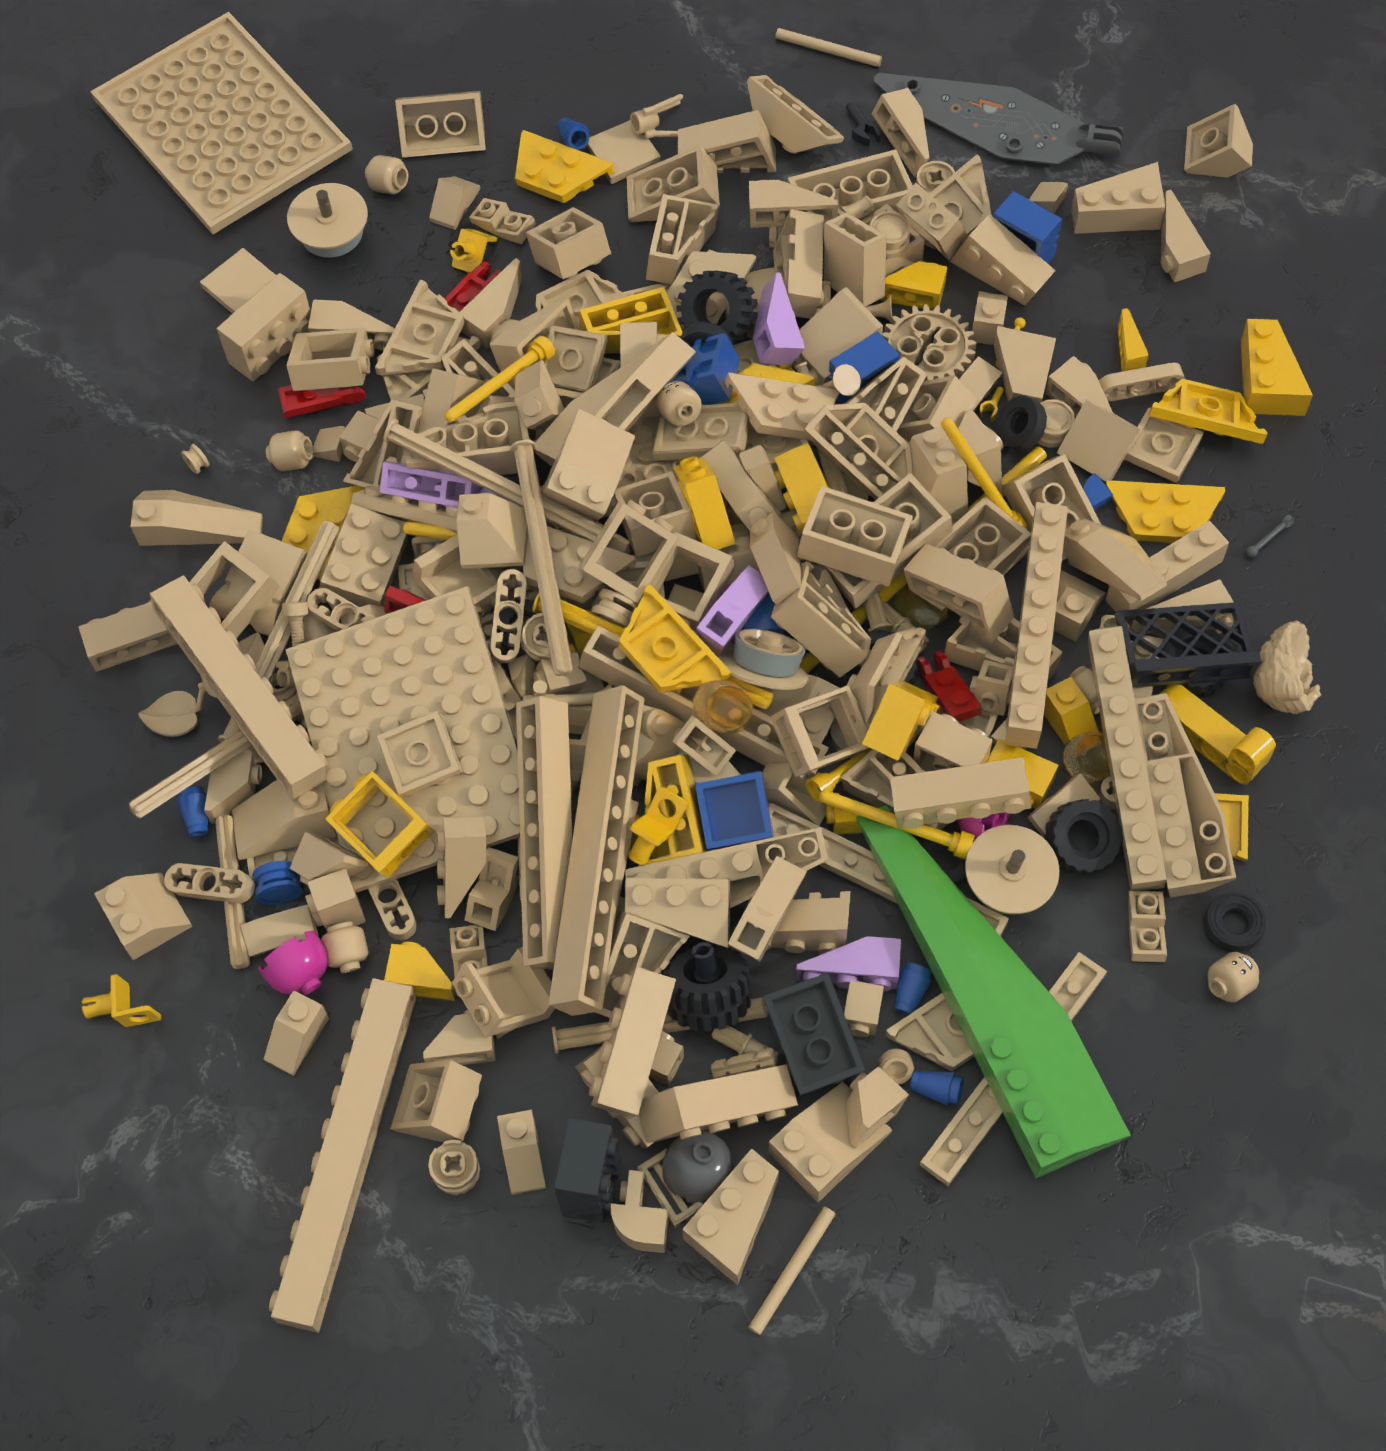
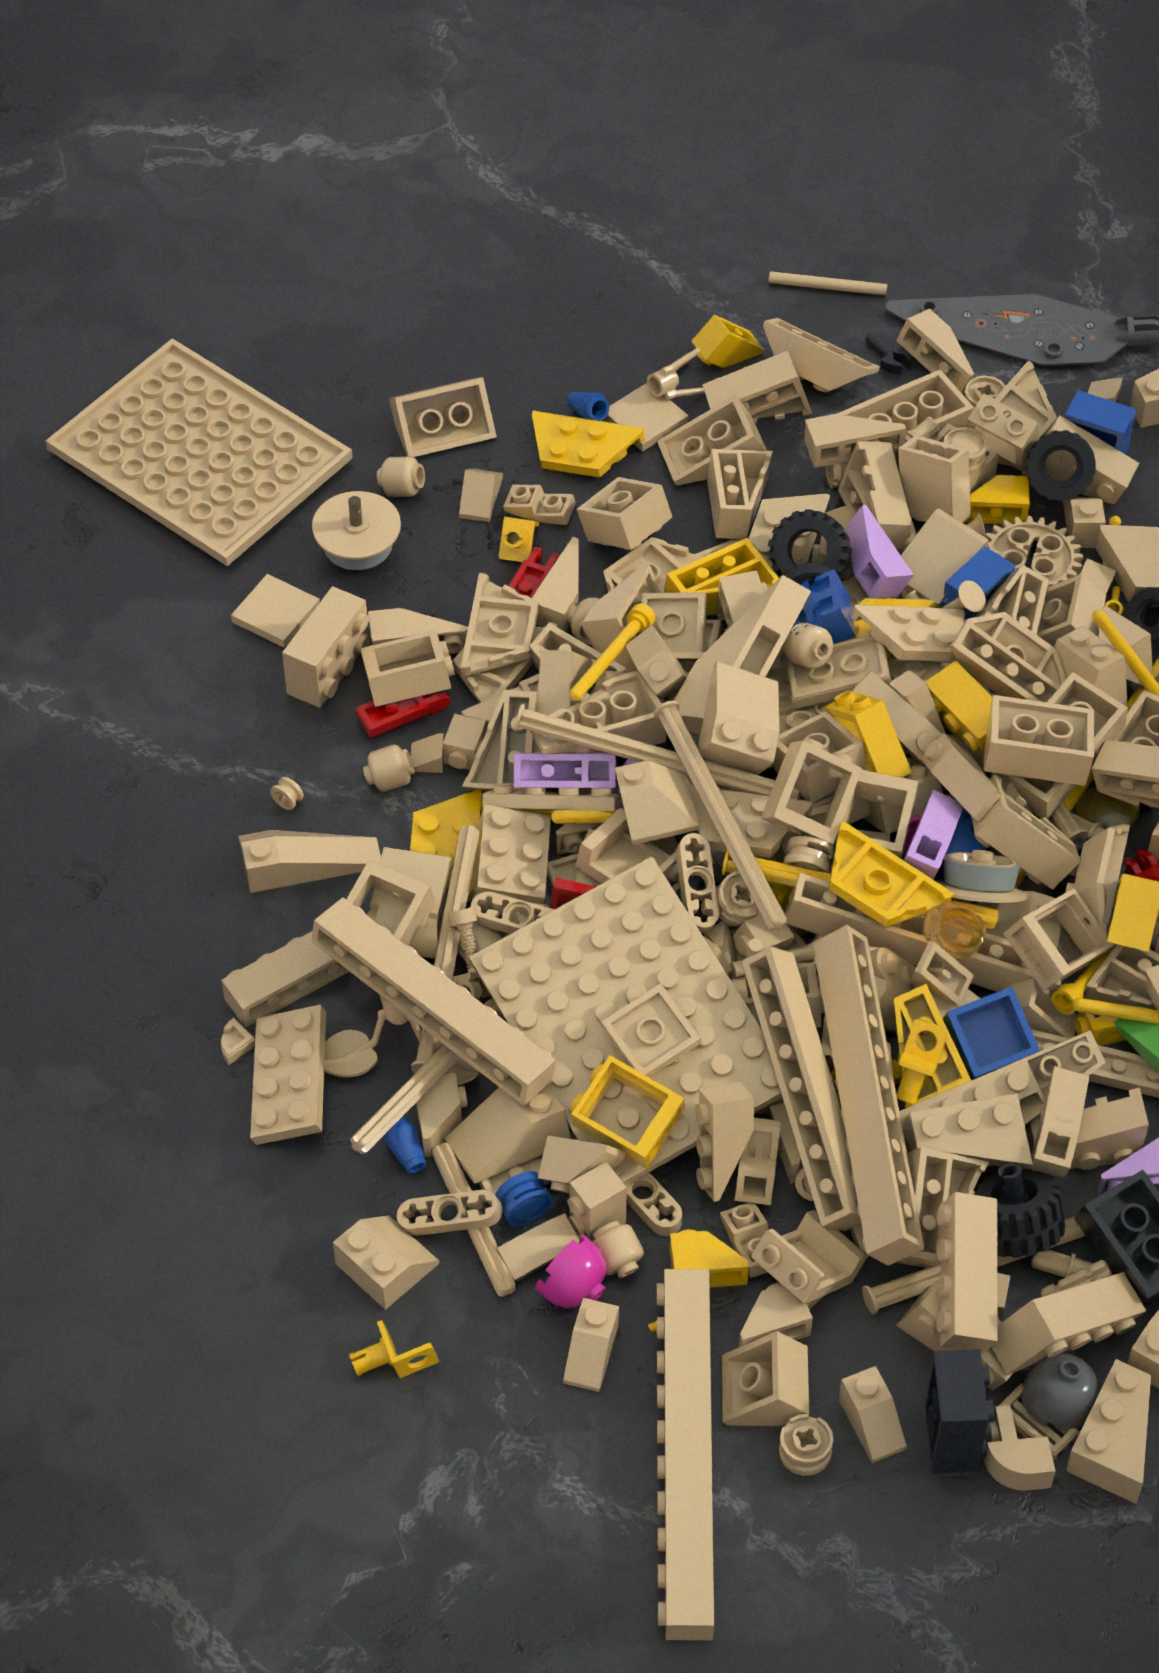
camera: 15 degrees left, 10 degrees down
(81, 684) = (235, 1041): none -> tan tile
(113, 725) = (288, 1075): none -> tan plate
(715, 91) = (725, 343): none -> yellow slope
(954, 269) = (1060, 441): none -> black tyre

